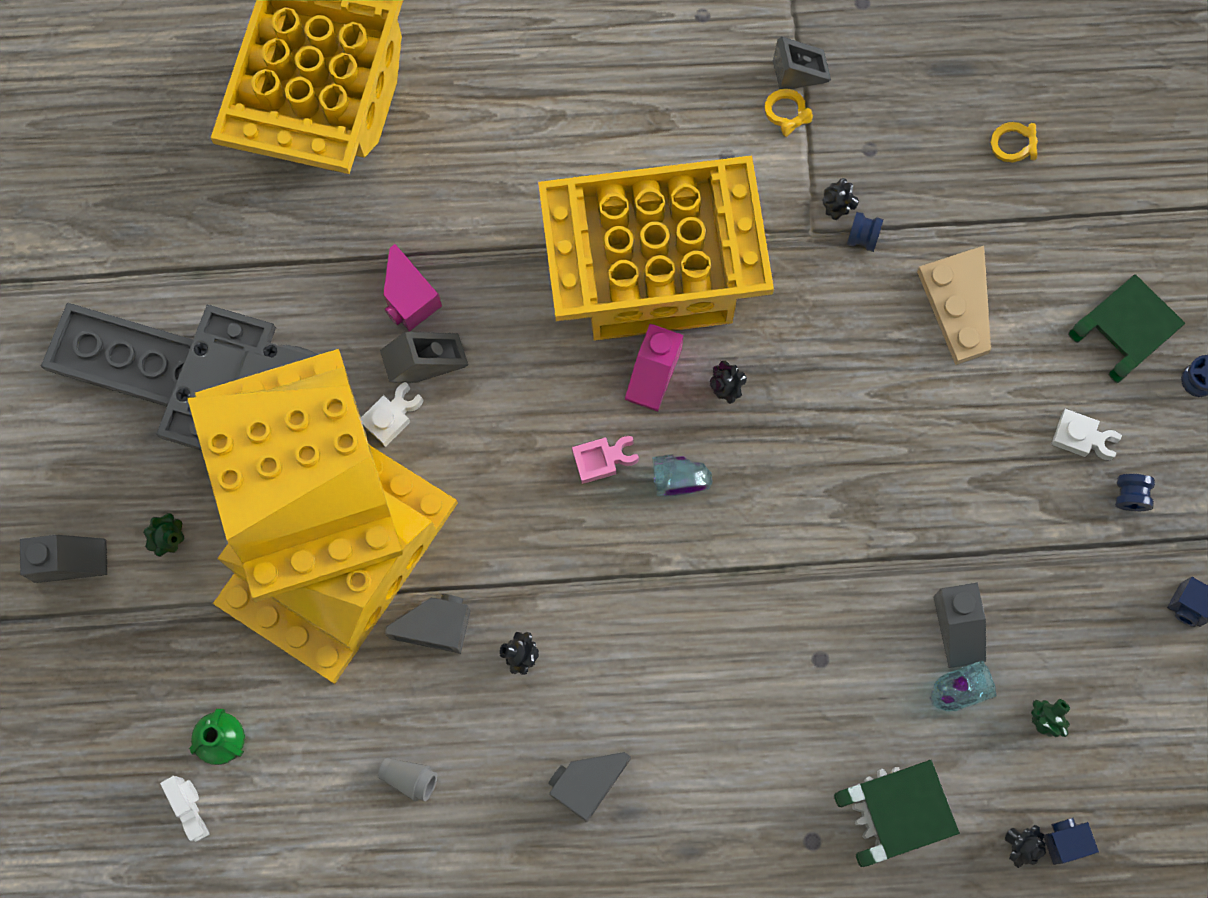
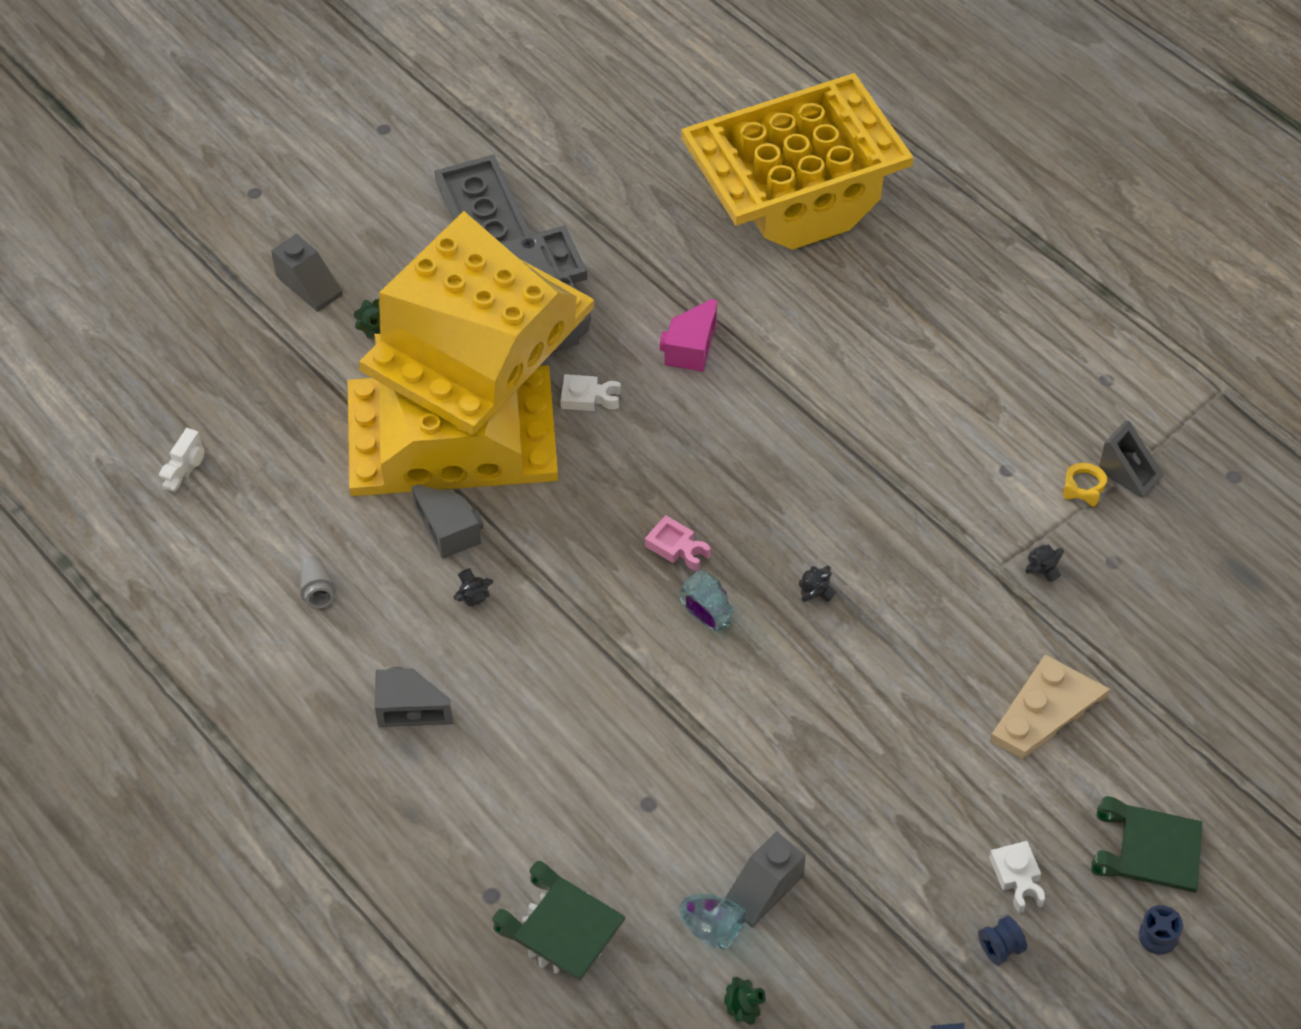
camera: 50 degrees right, 20 degrees down
(229, 739) = (252, 453): green piece -> none
(422, 356) = (650, 379): dark grey slope -> none
(654, 367) = (782, 527): dark pink slope -> none
(656, 246) = (864, 445): yellow wedge -> none
(865, 231) = (1034, 595): dark blue wheel -> none
(1029, 132) = (1230, 672): yellow piece -> none

